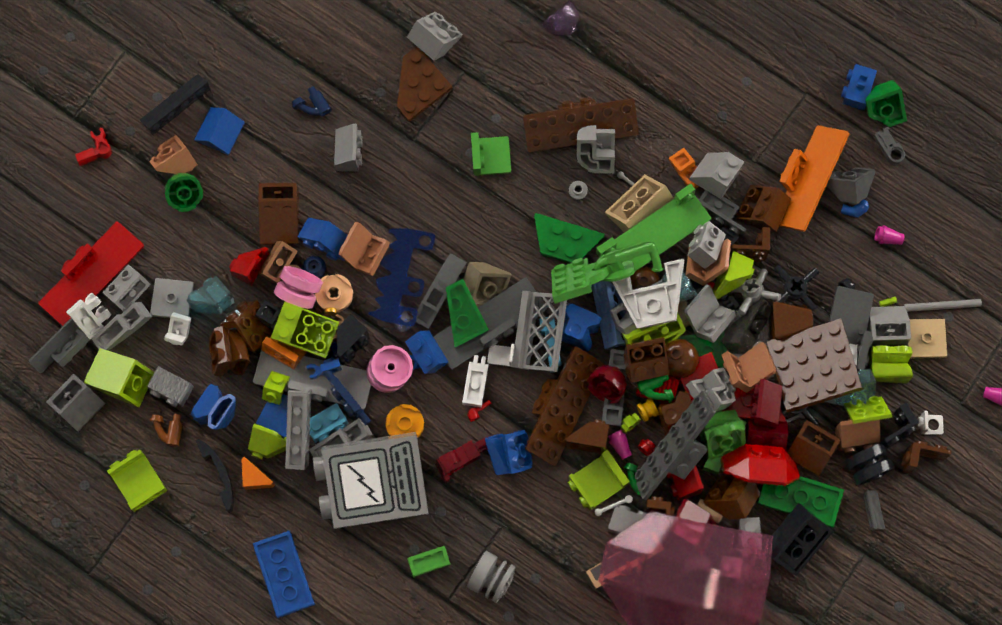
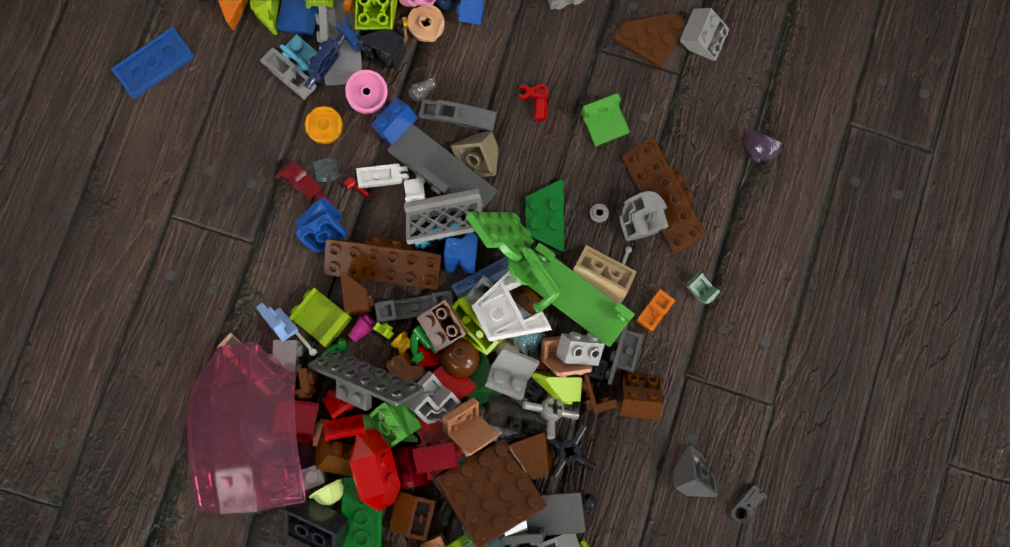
camera: 65 degrees right, 5 degrees up
(298, 429) = (282, 28): light grey fence -> none
(363, 249) = (474, 32): nougat bracket -> none
(371, 480) = (253, 108): brick -> none
(397, 283) = (451, 74): clear blue piece -> none
(428, 561) = (199, 186): bright green plate -> none
(441, 207) = (540, 93): none -> red bar
(453, 432) = (326, 170): none -> clear light blue piece
(464, 314) = (440, 143): green wing -> none
(491, 577) = (195, 245): light grey wheel -> none
(591, 520) = (278, 321): none -> light blue bracket
(607, 383) = (415, 297): dark red cylinder -> none
(646, 447) = (367, 354): red plate -> none
(681, 119) = (702, 288): none -> sand green bracket
(713, 482) = (343, 427): none -> red plate
(717, 172) = (660, 339): light grey slope -> none
(770, 517) = (329, 494): none -> yellowish green piece
(809, 174) = (689, 430): orange bracket -> none
(857, 210) = (669, 489): blue arm -> none
(859, 86) = (798, 455): blue brick -> none
(886, 104) = (790, 488): green slope -> none
(886, 235) = (653, 527): dark pink cone -> none

